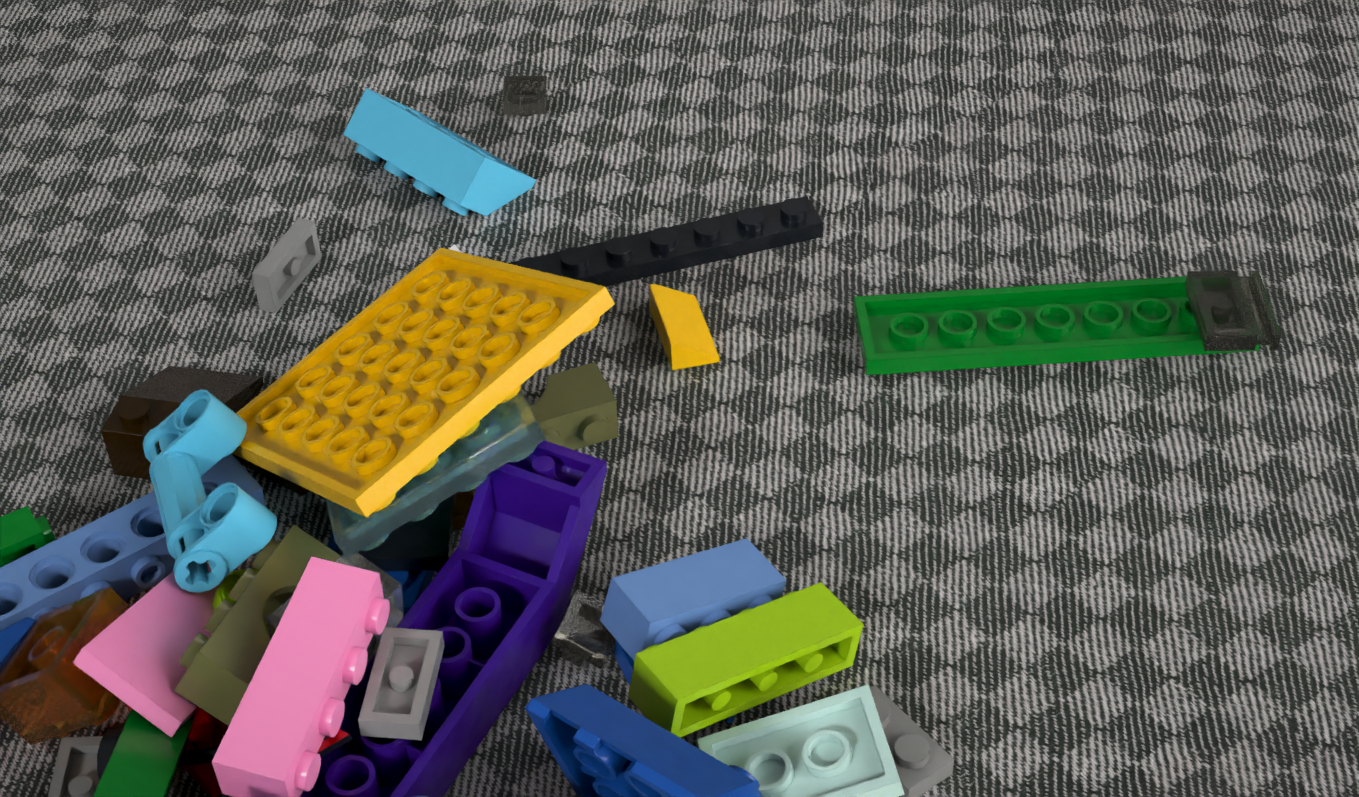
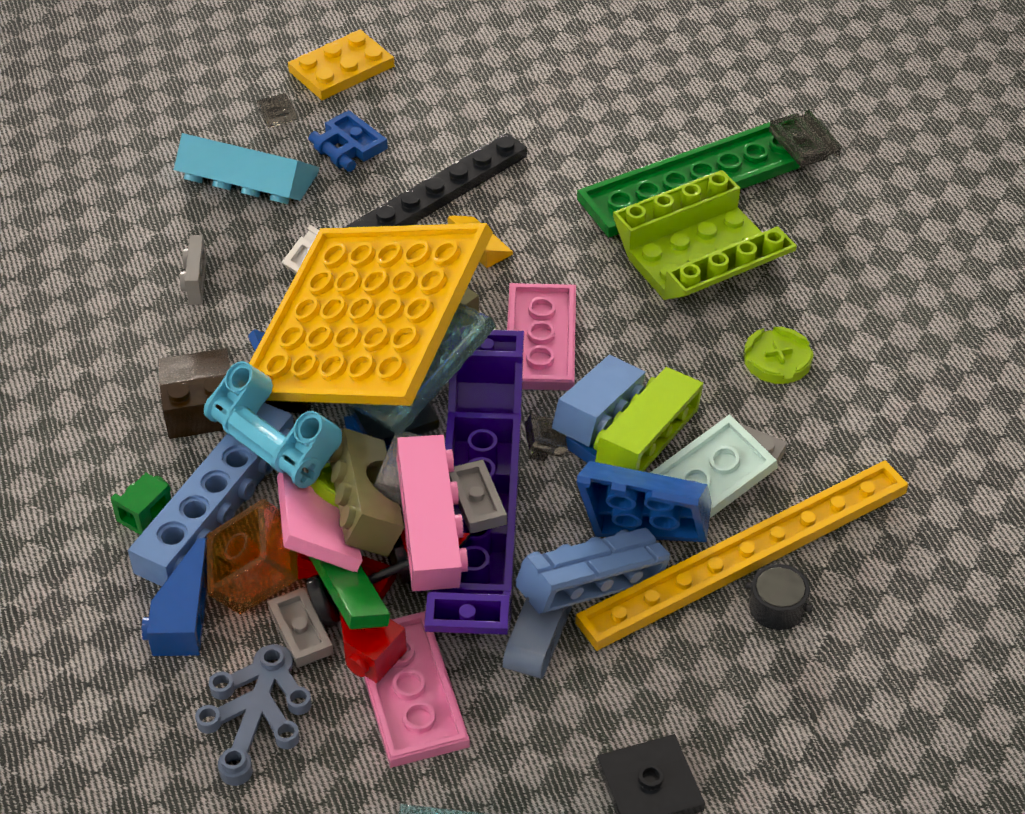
camera: 25 degrees left, 5 degrees up
(602, 153) = (355, 137): none -> blue plate
(648, 60) = (341, 64): none -> yellow plate
(684, 485) = (548, 324): none -> bright pink tile
(989, 405) = (695, 237): none -> lime slope
(1022, 620) = (778, 355): none -> lime tile

